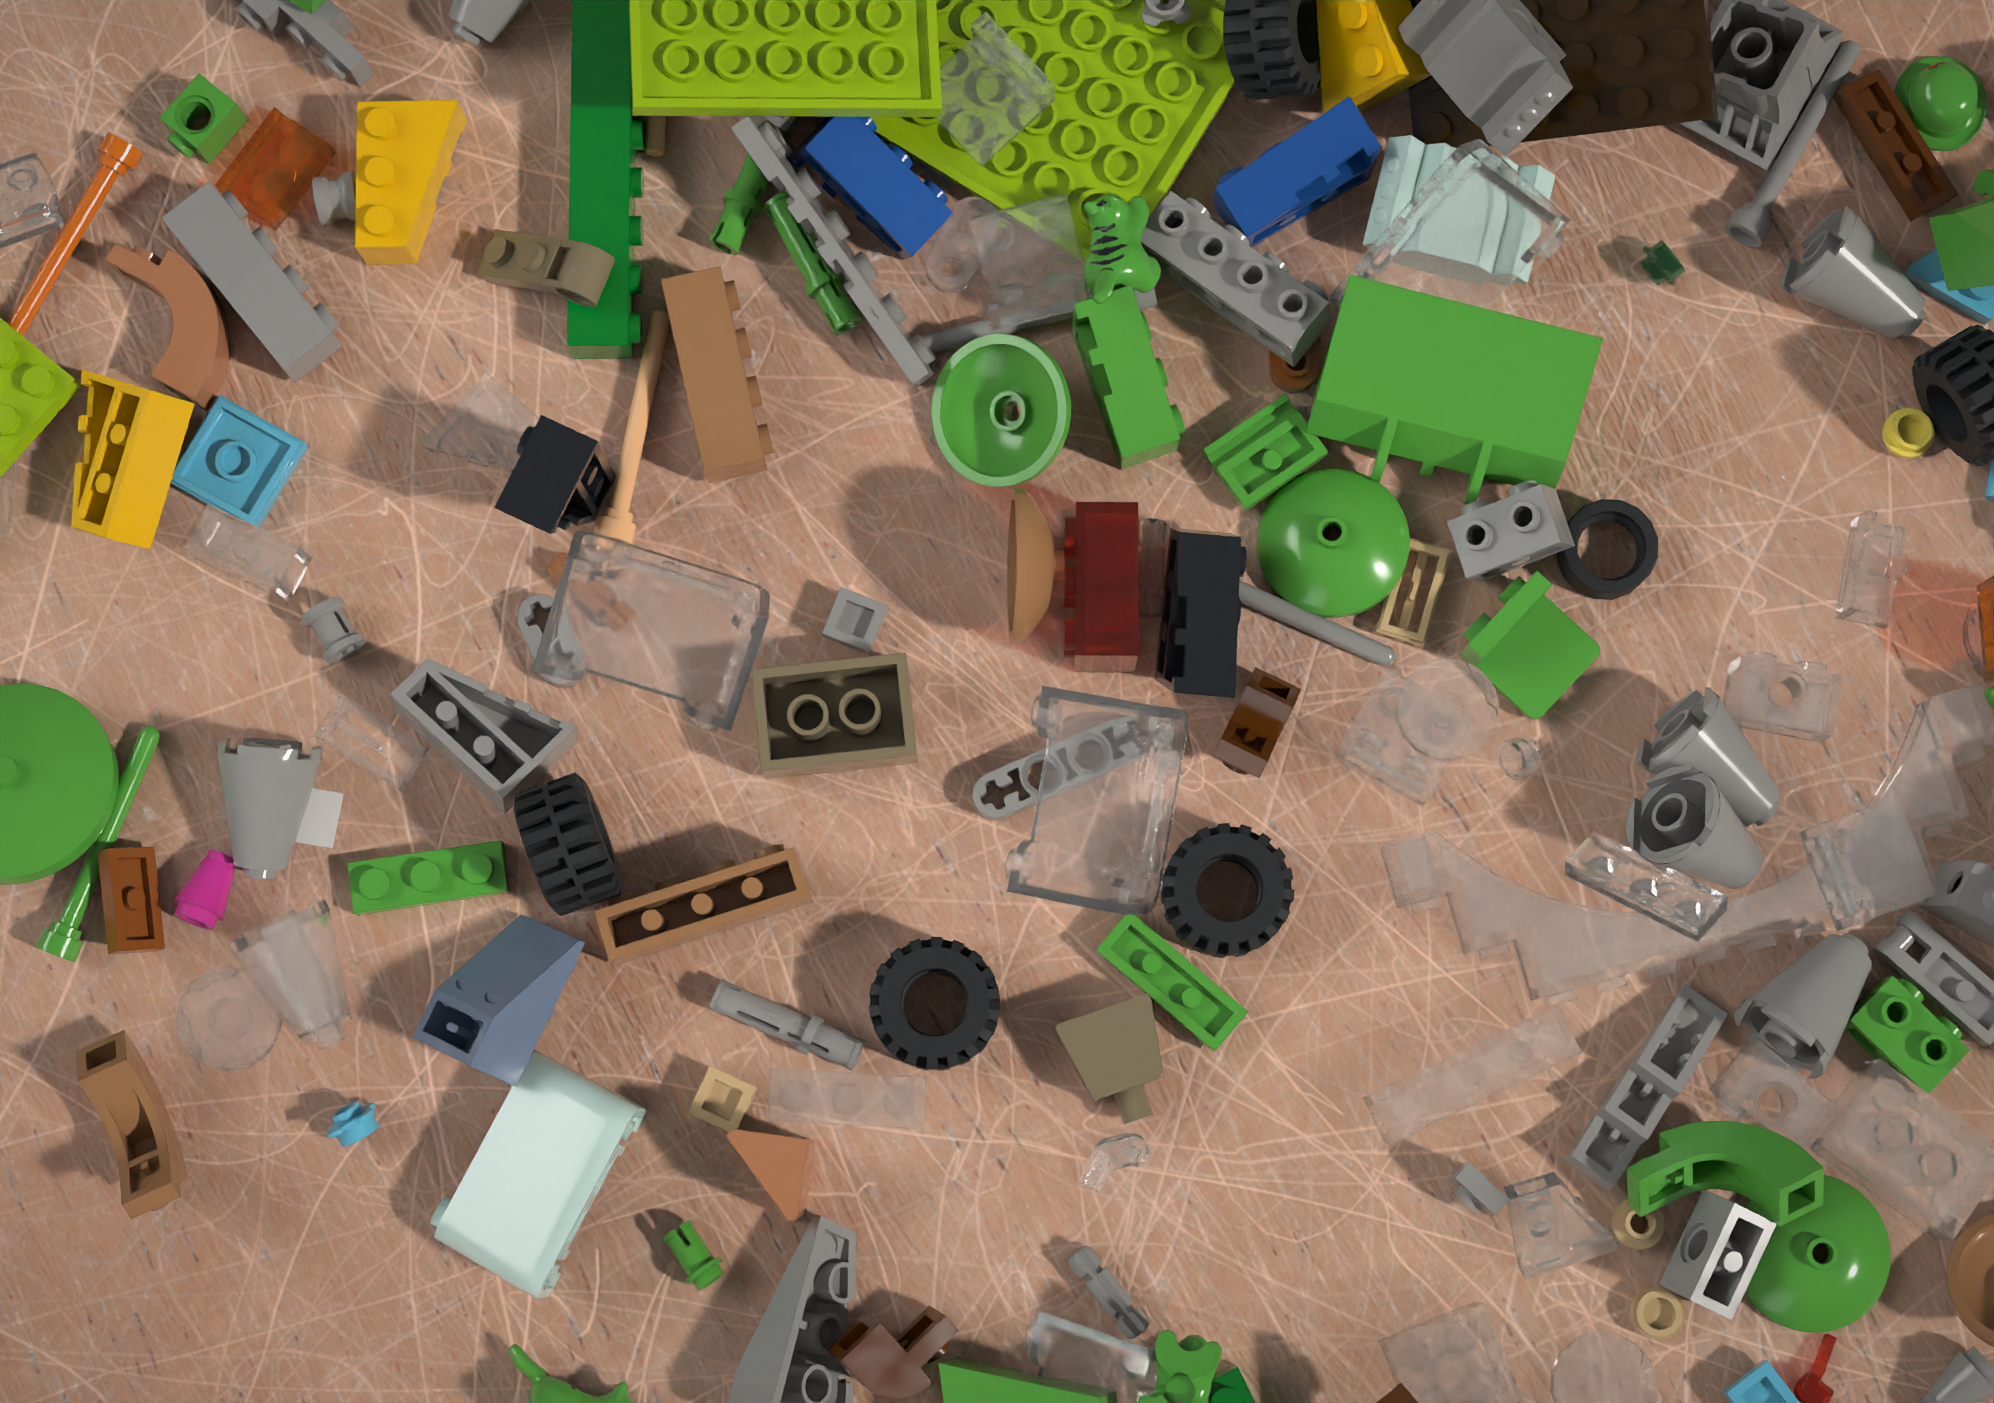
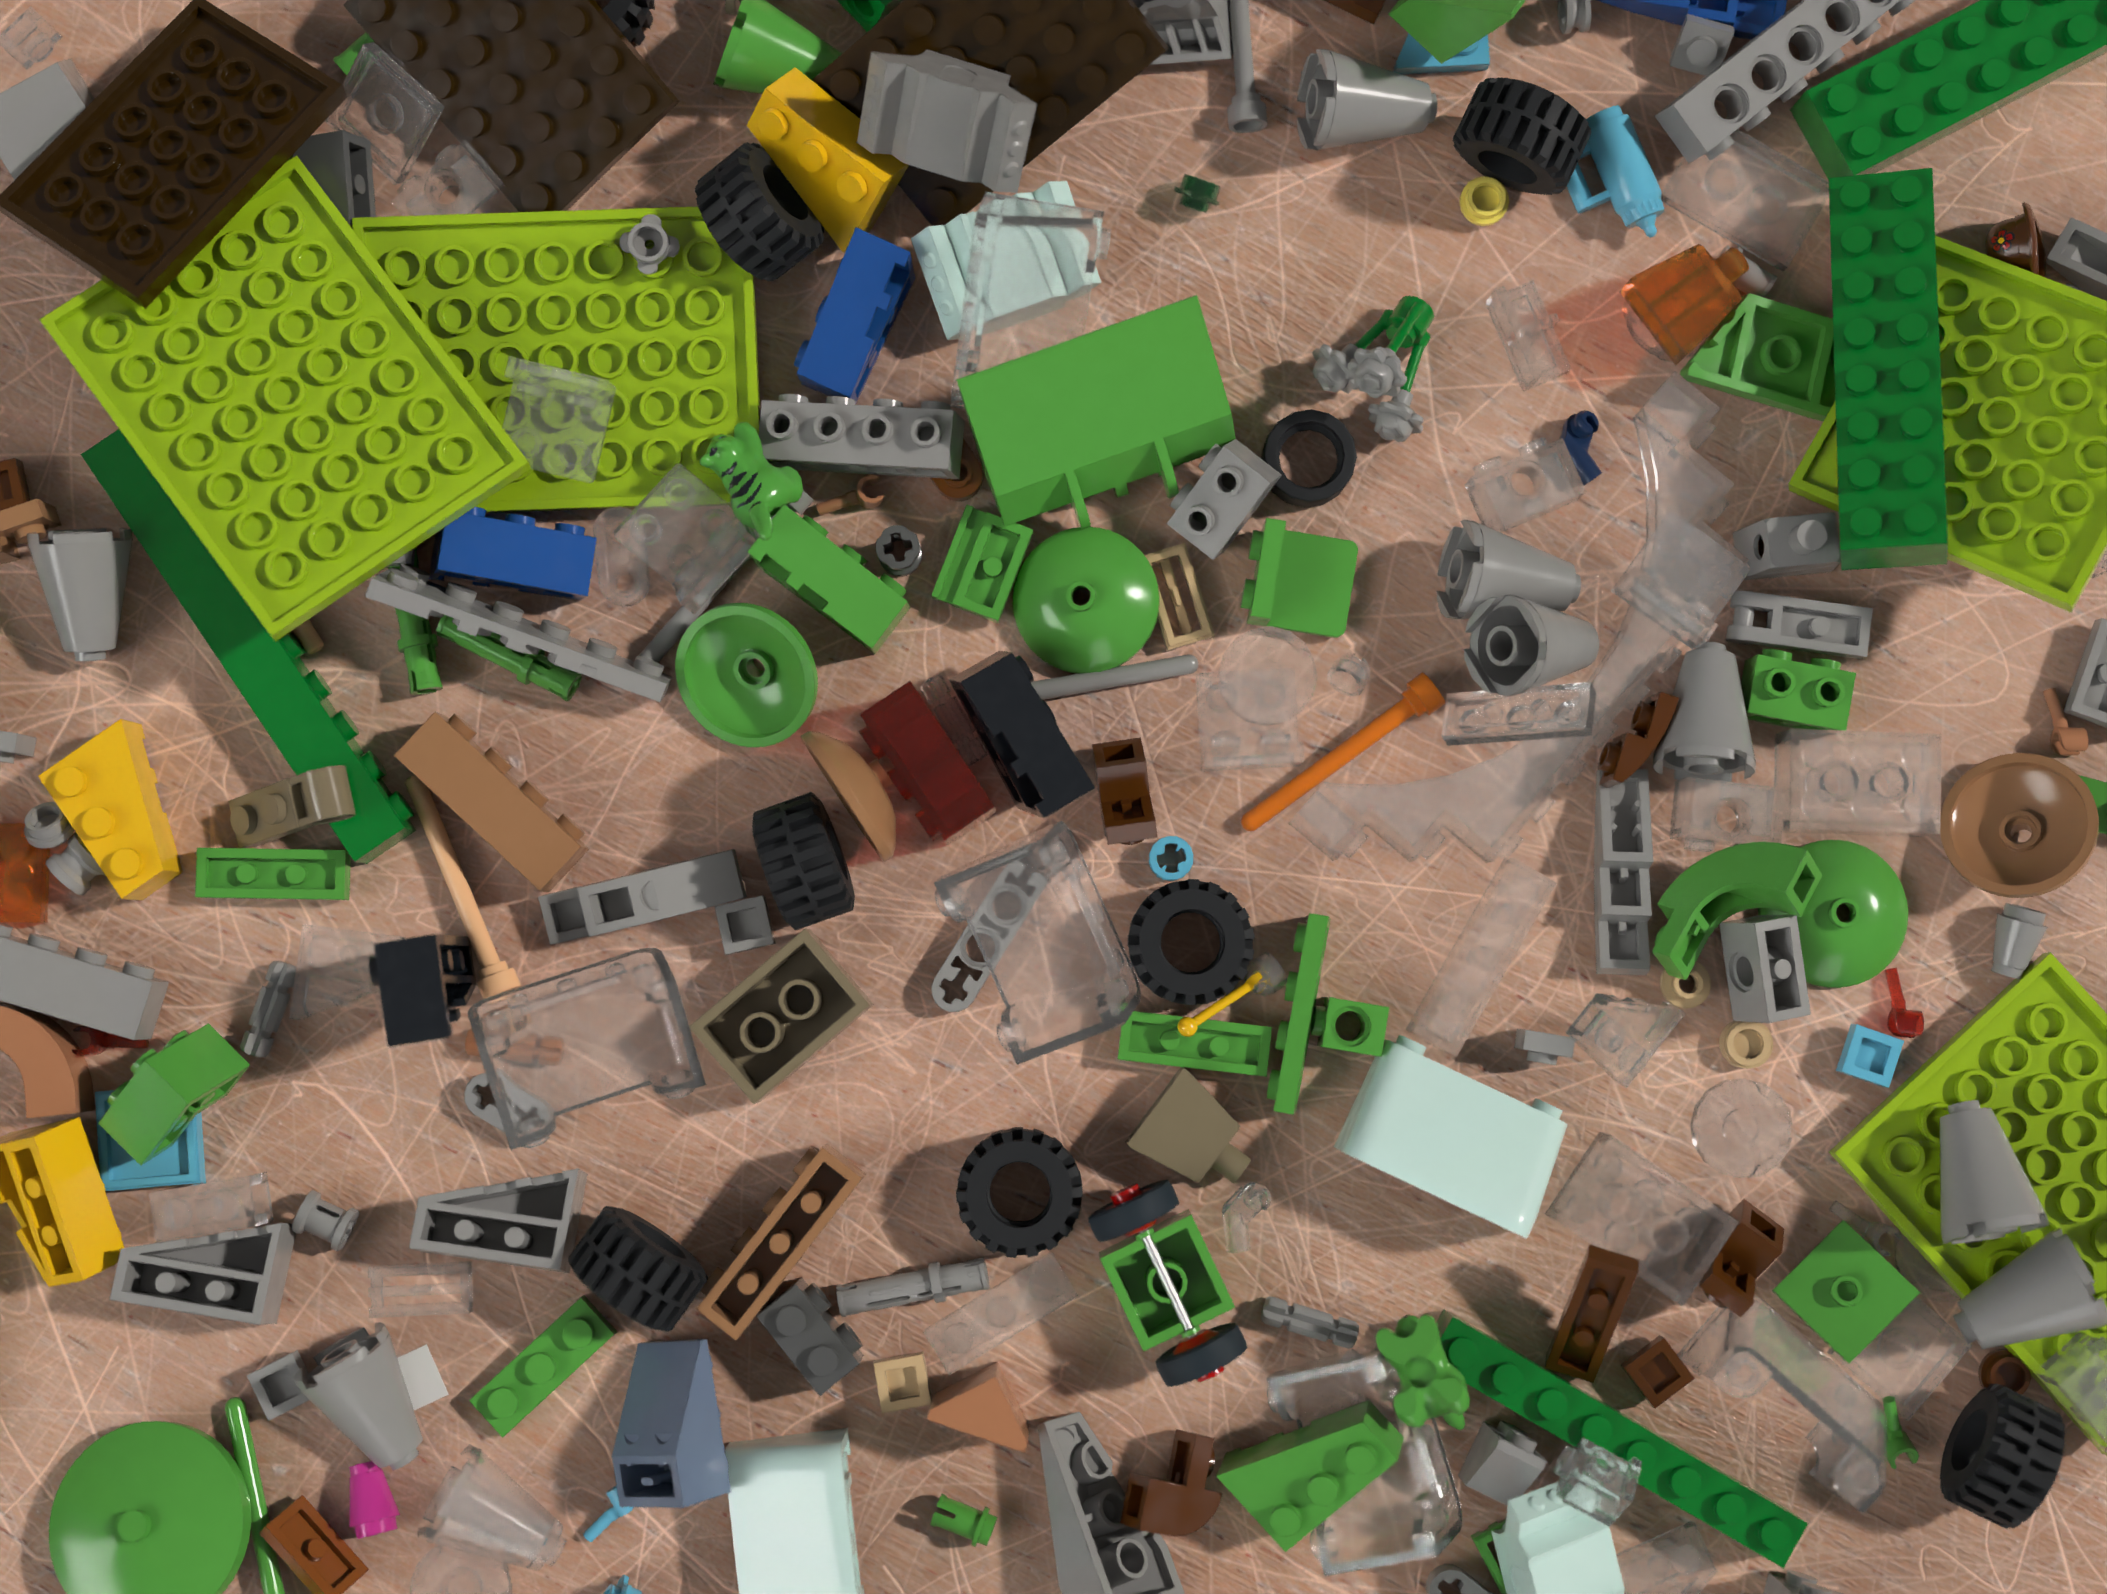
camera: 35 degrees left, 5 degrees up
(197, 741) = (276, 1386): none -> light grey plate
(212, 610) = (213, 1275): none -> light grey wedge
(254, 357) = (102, 1040): none -> clear red hand
(283, 432) = (171, 1090): none -> bright green brick
(335, 149) = (47, 826): none -> light grey plate
(397, 1043) = (607, 1517): none -> medium azure hand
(408, 423) = (269, 1009): none -> light grey axle
(491, 313) = (273, 873): none -> bright green plate
(673, 1004) = (812, 1335): none -> dark grey brick
(785, 537) = (642, 897): none -> light grey slope
(942, 596) = (803, 861): none -> black tyre
(1009, 1165) = (1167, 1282): none -> brick
(1193, 326) = (853, 498): none -> nougat hand
(1211, 404) = (912, 557): none -> dark grey bush
(1251, 796) = (1159, 849): none -> medium azure bush
(1268, 964) = (1263, 978): none -> hinge
(1295, 1000) = (1295, 1034): none -> bright green plate
(1341, 1059) = (1371, 1034): none -> bright green brick
(1345, 1214) = (1454, 1136): none -> light aqua windscreen
(1565, 818) = (1418, 699): none -> orange piece
(1716, 510) = (1379, 369): none -> light grey plant
(1725, 982) = (1629, 751): none -> reddish brown slope
(1855, 688) = (1577, 435): none -> dark blue arm

